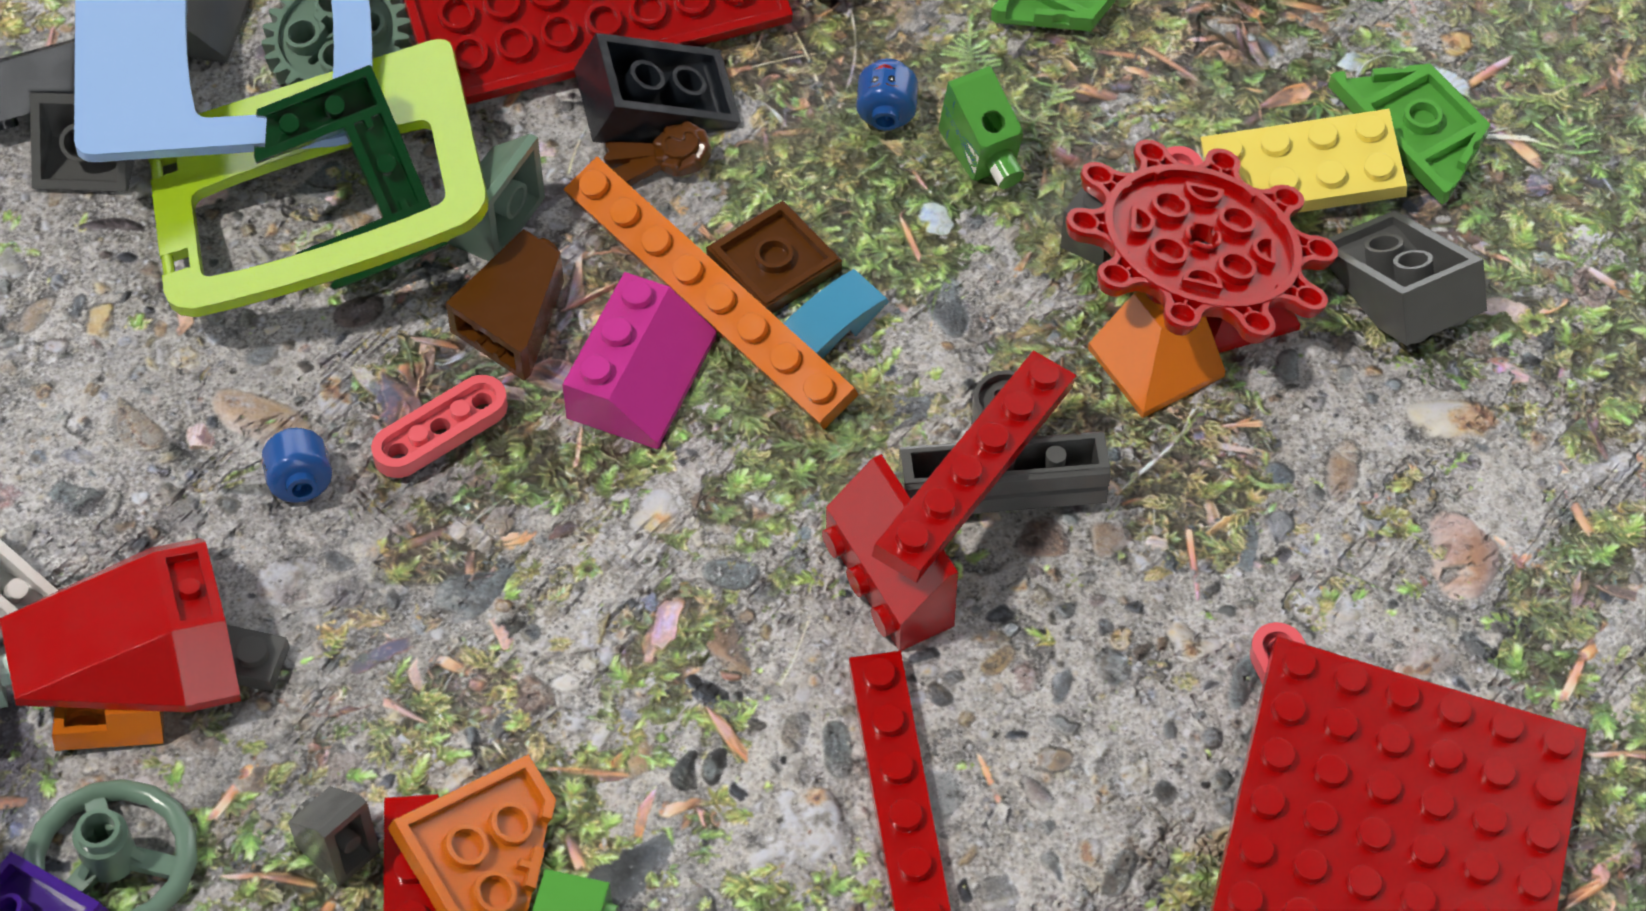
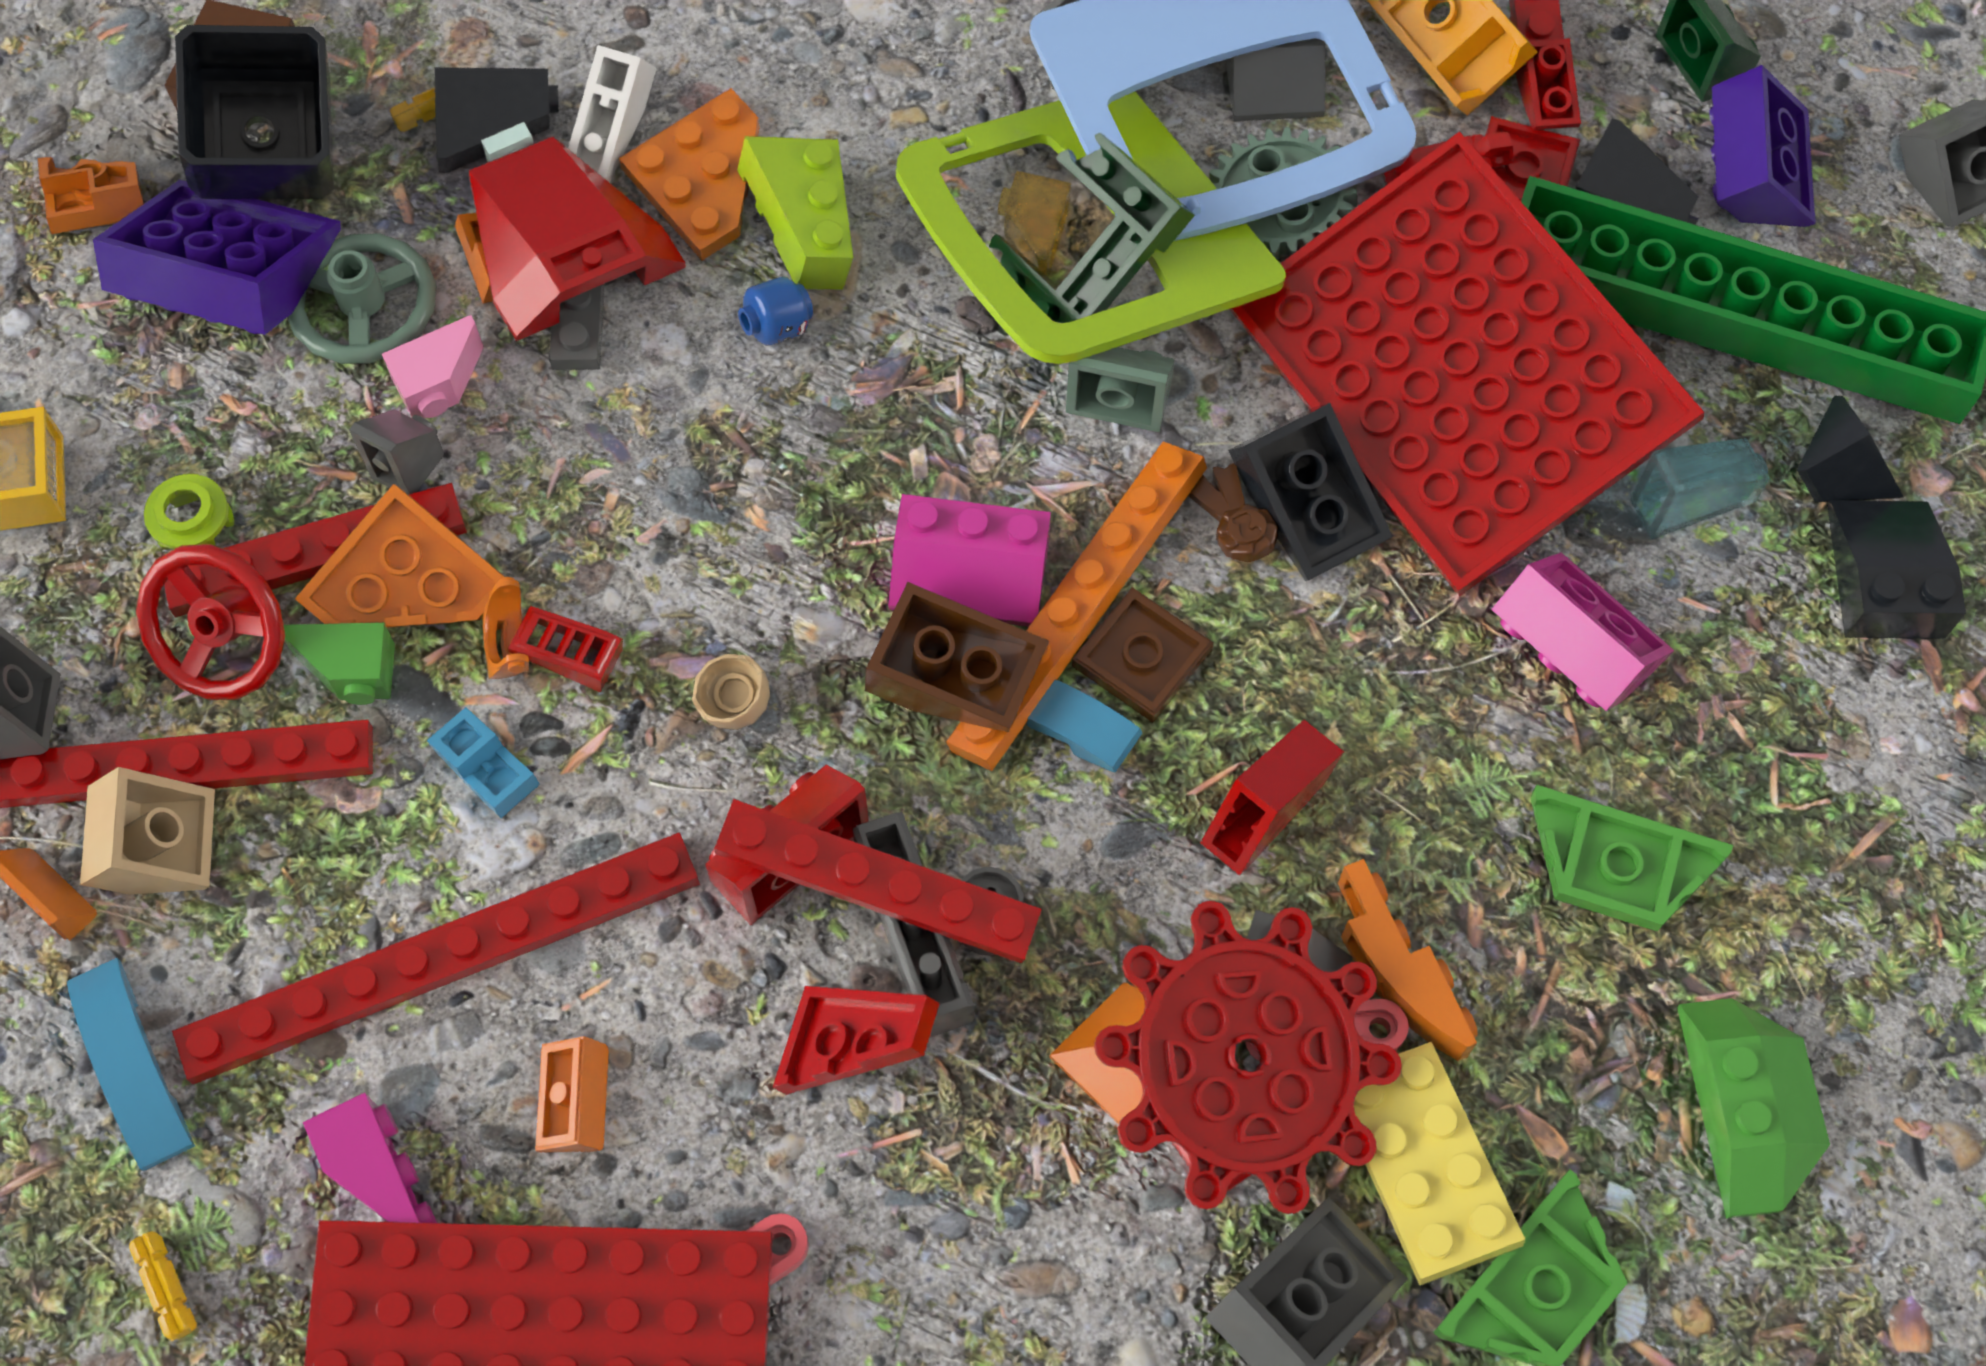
camera: 75 degrees right, 10 degrees up
(90, 508) = (694, 173): none -> orange plate
(189, 408) = (805, 204): none -> lime wedge
(242, 792) = (435, 367): none -> bright pink slope
(280, 225) = (1035, 216): none -> clear yellow slope
(451, 411) = (846, 399): coral plate -> none
(510, 303) = (1008, 434): reddish brown slope -> none
(584, 784) = (503, 613): none -> orange helmet
(636, 691) = (592, 676): none -> red slope
(716, 579) = (731, 691): none -> tan hair
(719, 825) = (483, 762): none -> dark azure slope
(747, 389) = (953, 661): none -> reddish brown slope
(887, 94) = (1376, 706): blue head -> none
(952, 187) = (1270, 796): none -> red slope
(982, 128) = (1366, 794): bright green torso -> none
(1092, 806) = (572, 1096): none -> orange slope
(1101, 538) = (852, 1033): none -> red wing
(1114, 143) = (1408, 979): none -> orange slope

